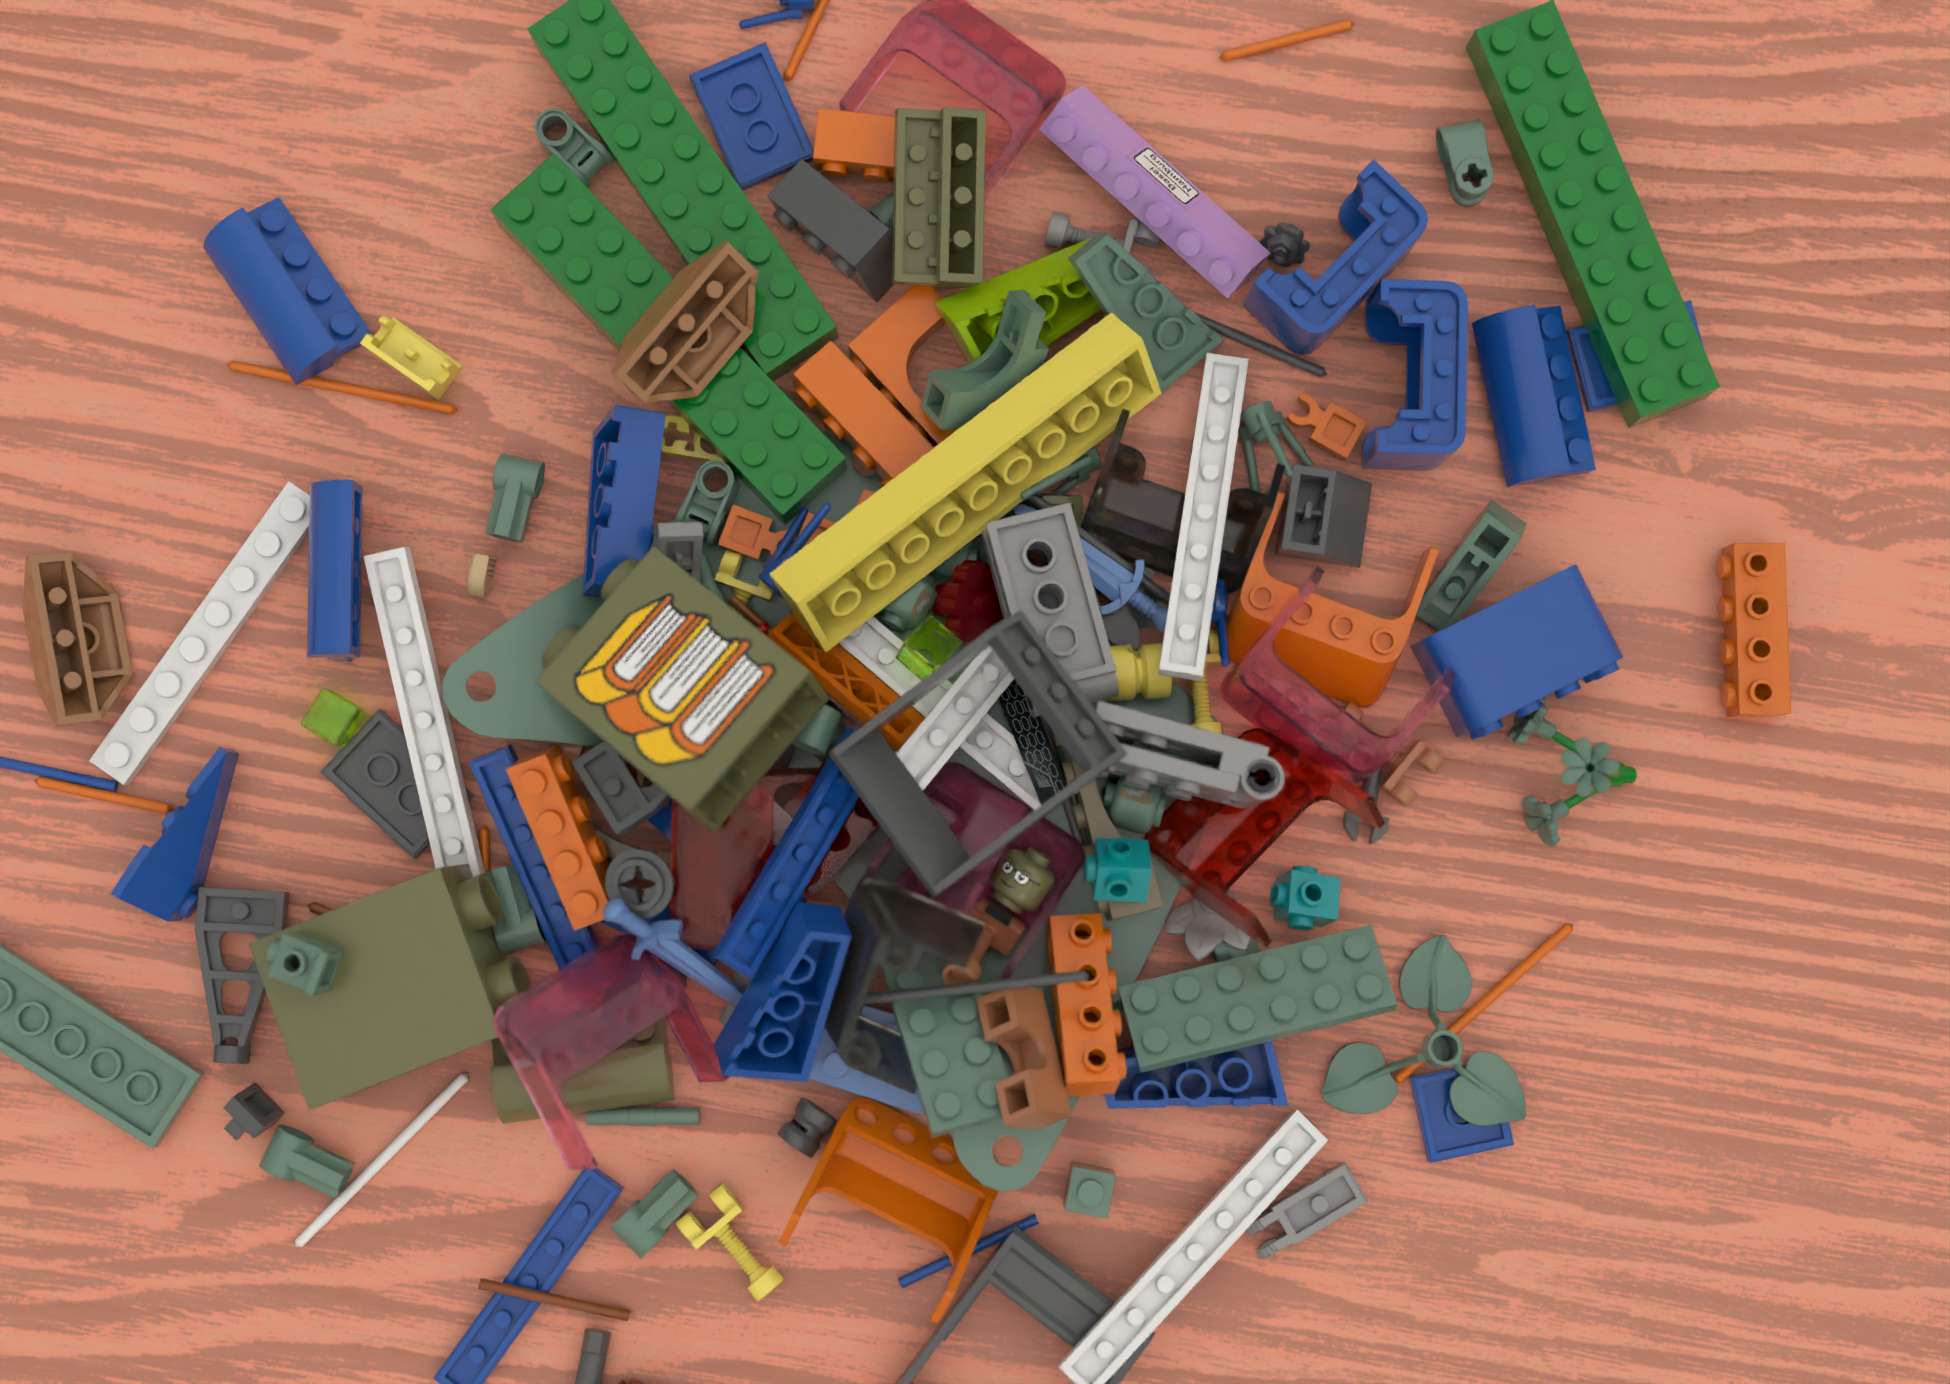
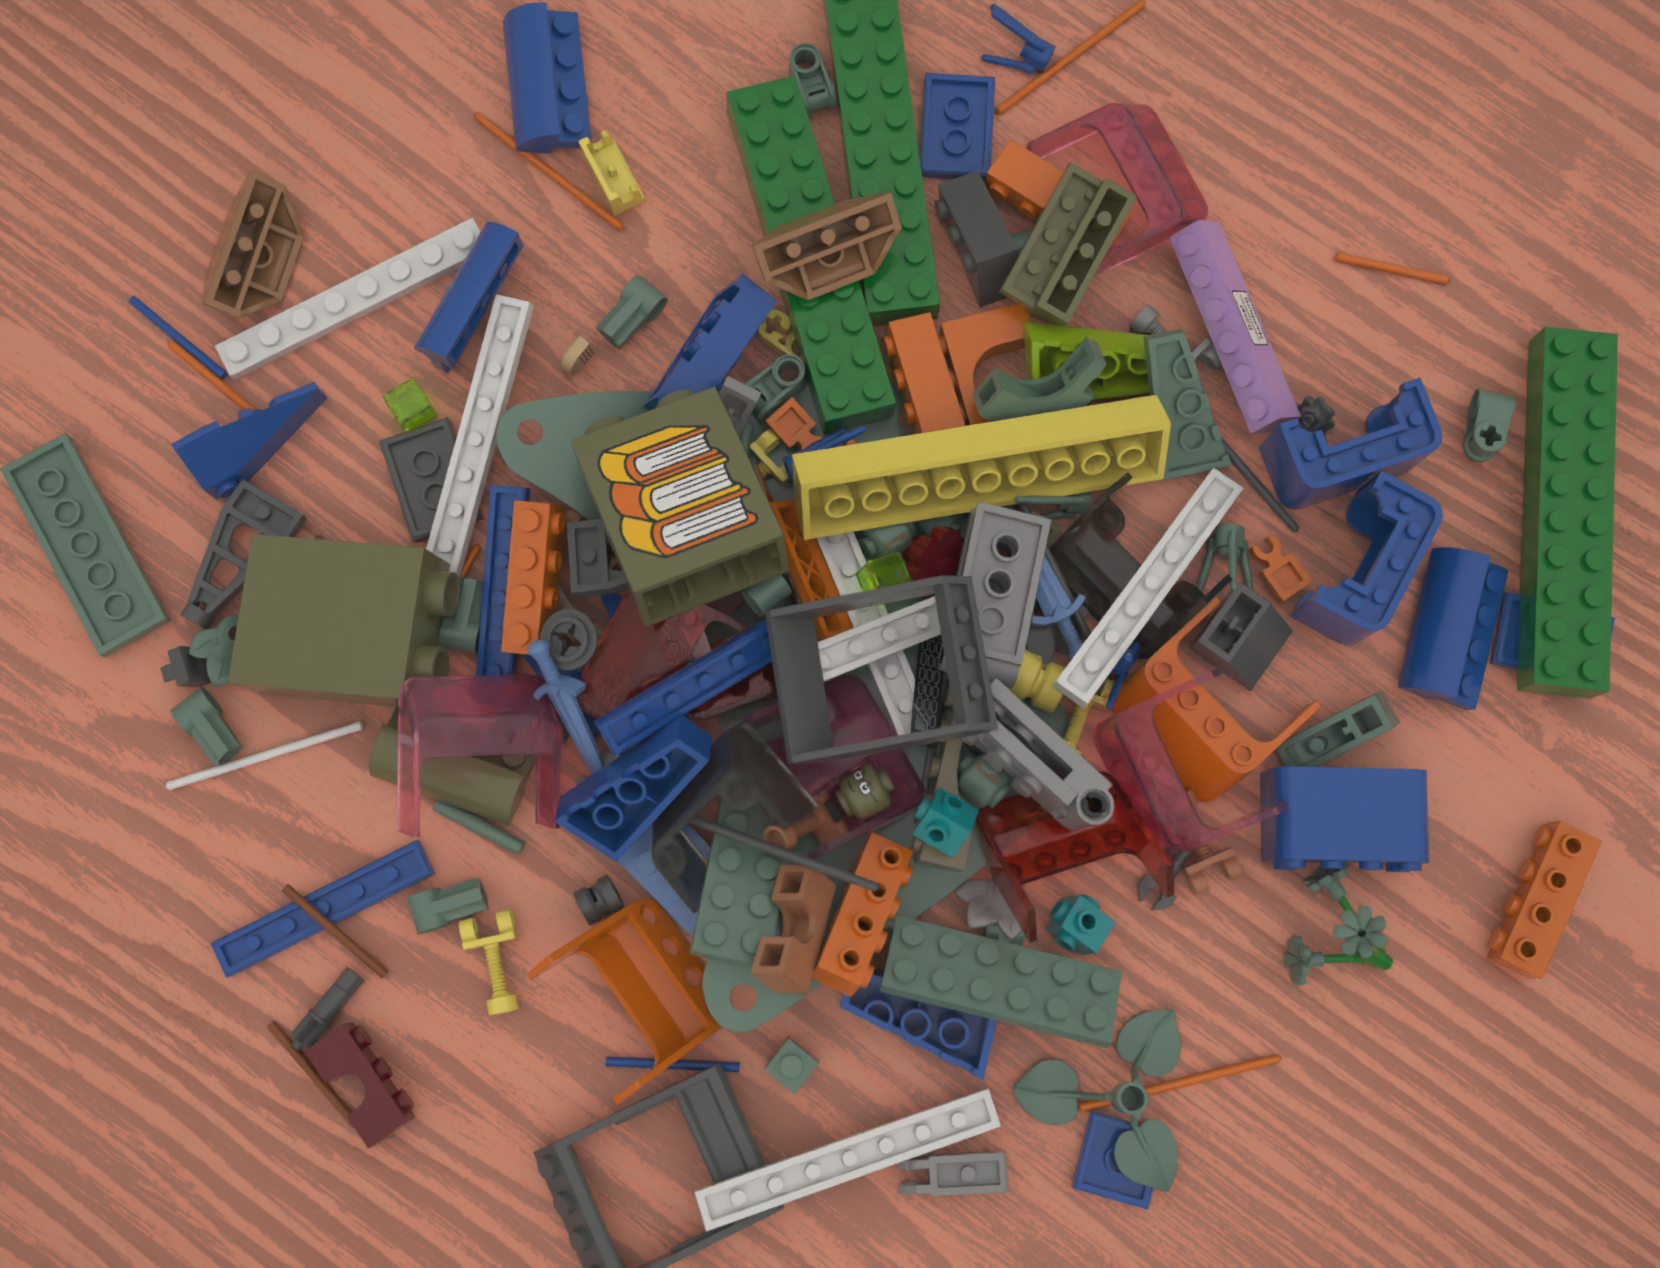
camera: 30 degrees right, 5 degrees down
(274, 1078) = (217, 649): none -> sand green plate
(317, 960) = (284, 567): sand green brick -> none

